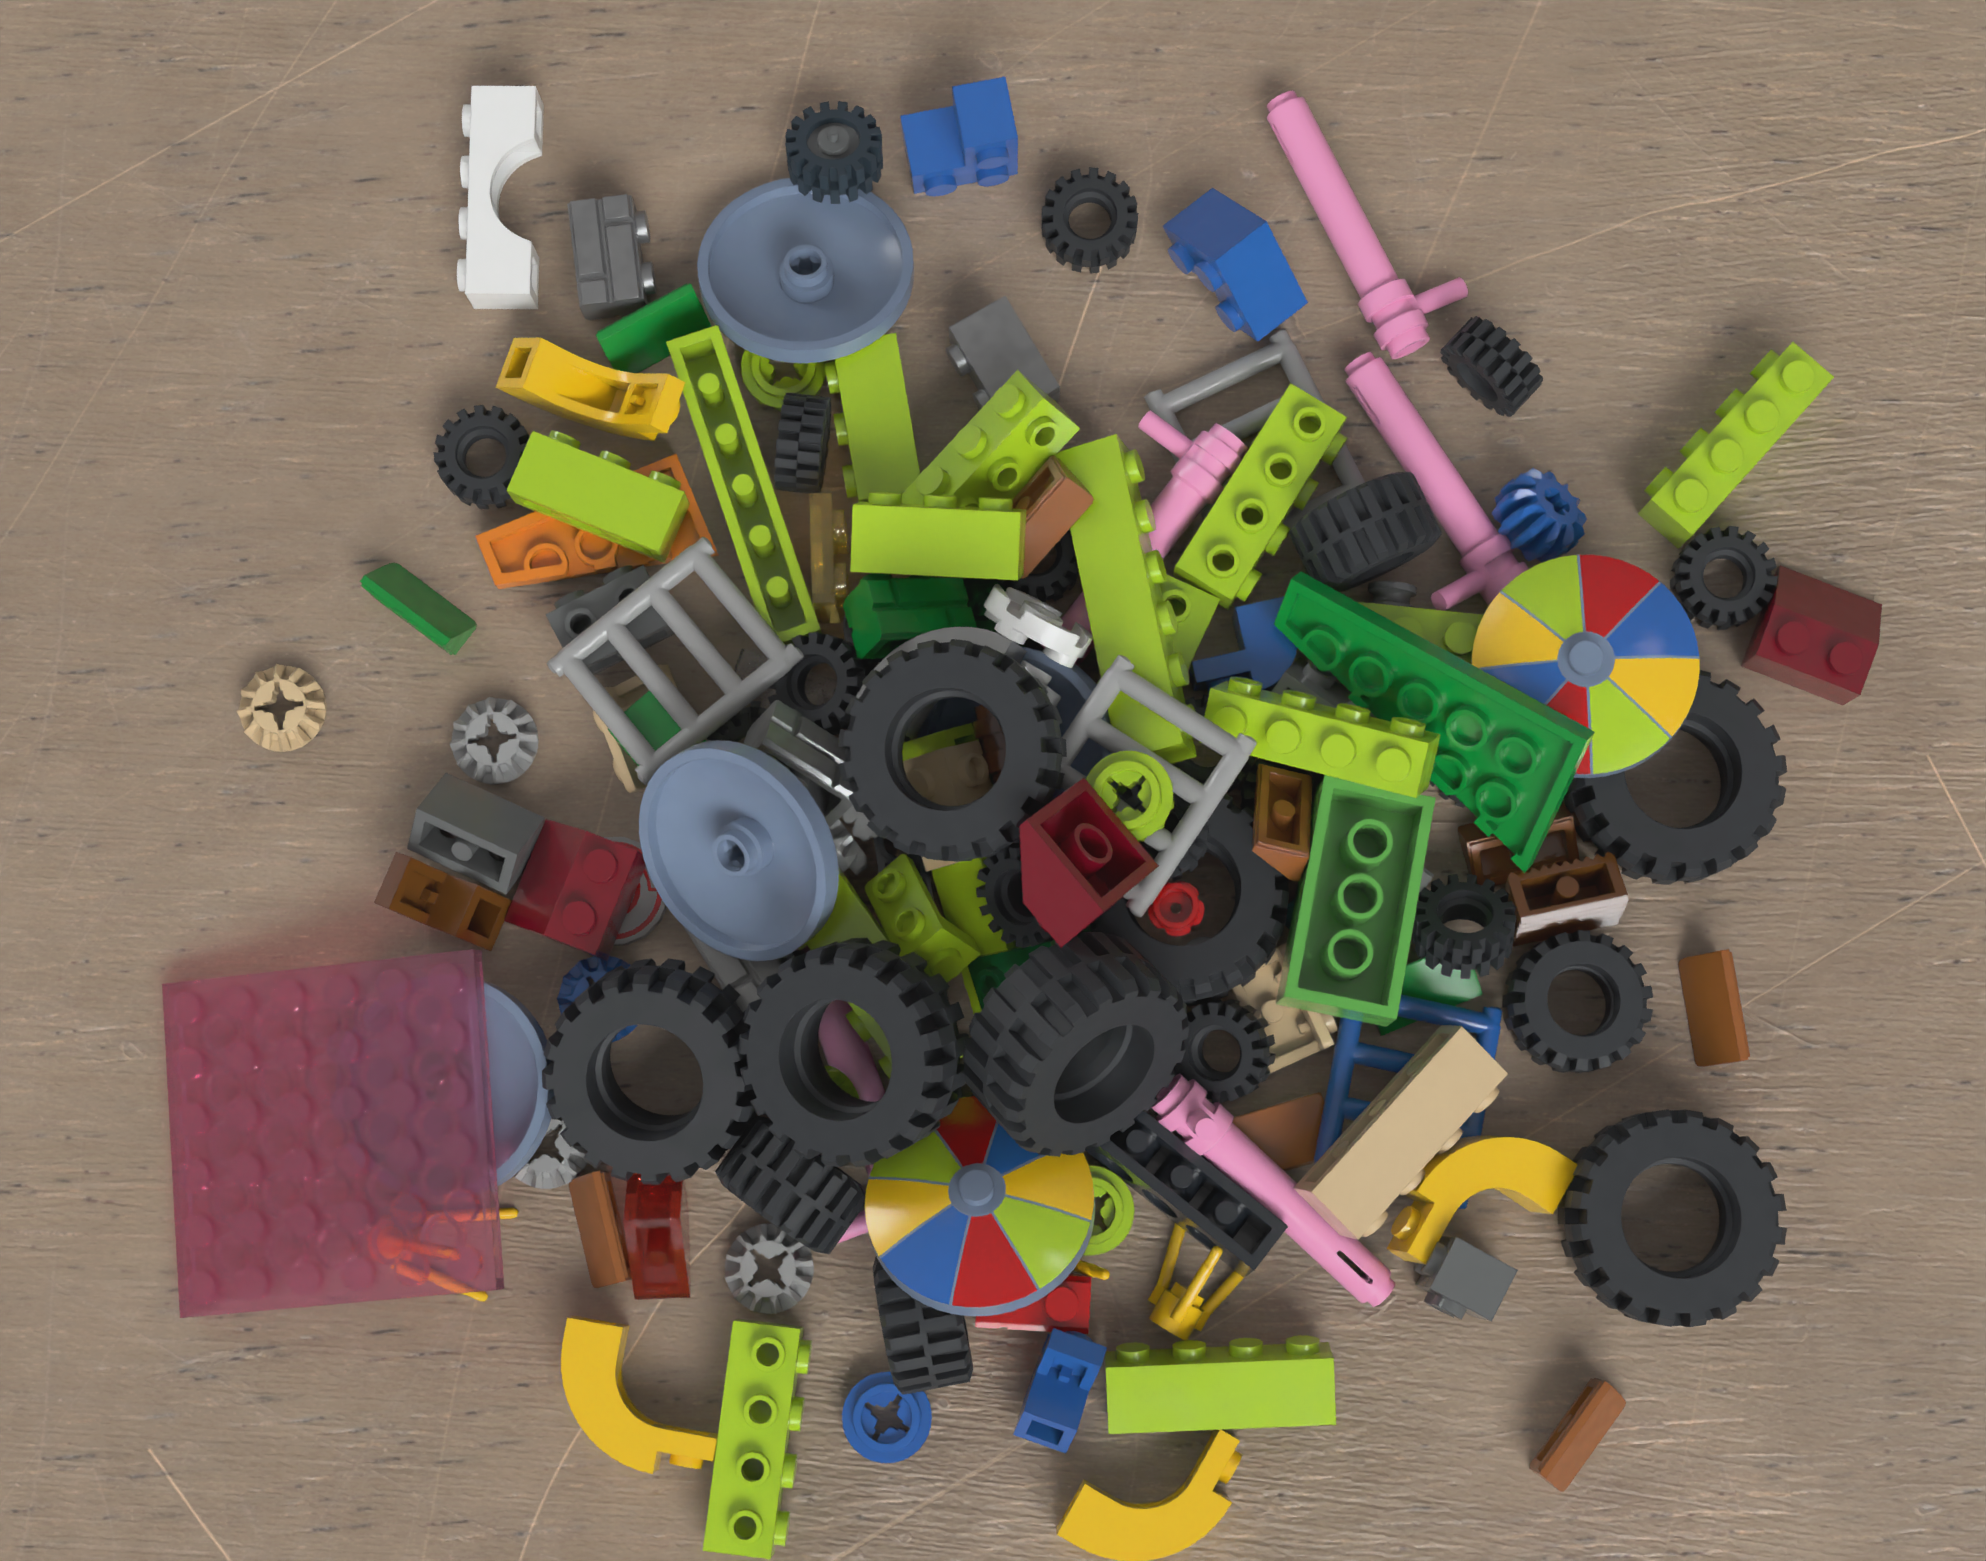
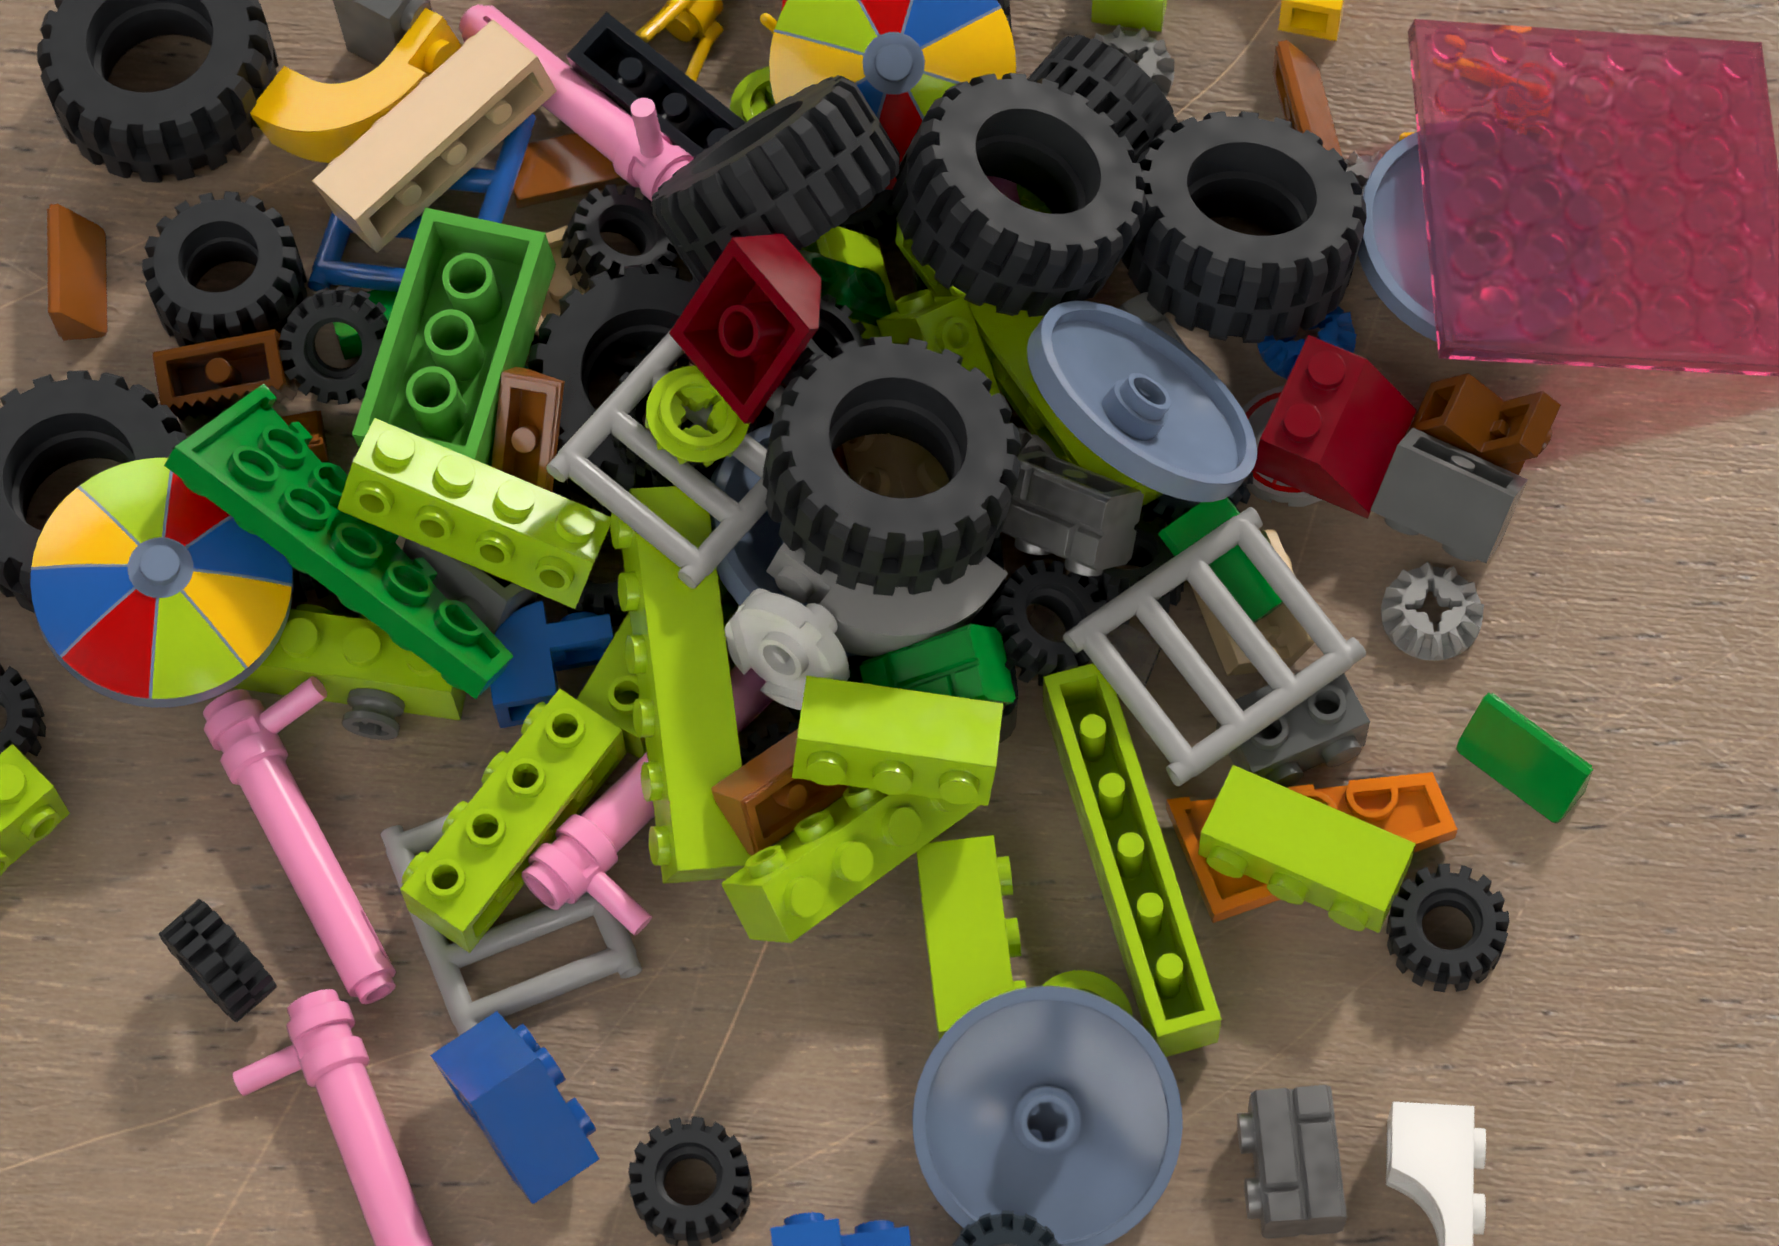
camera: 175 degrees left, 15 degrees down
(299, 724) = (1665, 677): tan gear -> none
(588, 392) = (1315, 995): yellow arch -> none
(642, 336) = (1241, 1071): green slope -> none
(658, 1238) = (1245, 82): clear red slope -> none
(802, 443) = (1058, 908): black tyre -> none
(828, 540) = (1031, 768): clear yellow plate -> none
(993, 347) = (812, 1000): flat silver brick -> none
(1181, 923) = (644, 329): red plate -> none
(1366, 531) = (394, 760): black tyre -> none
(1539, 515) = (187, 787): blue gear -> none

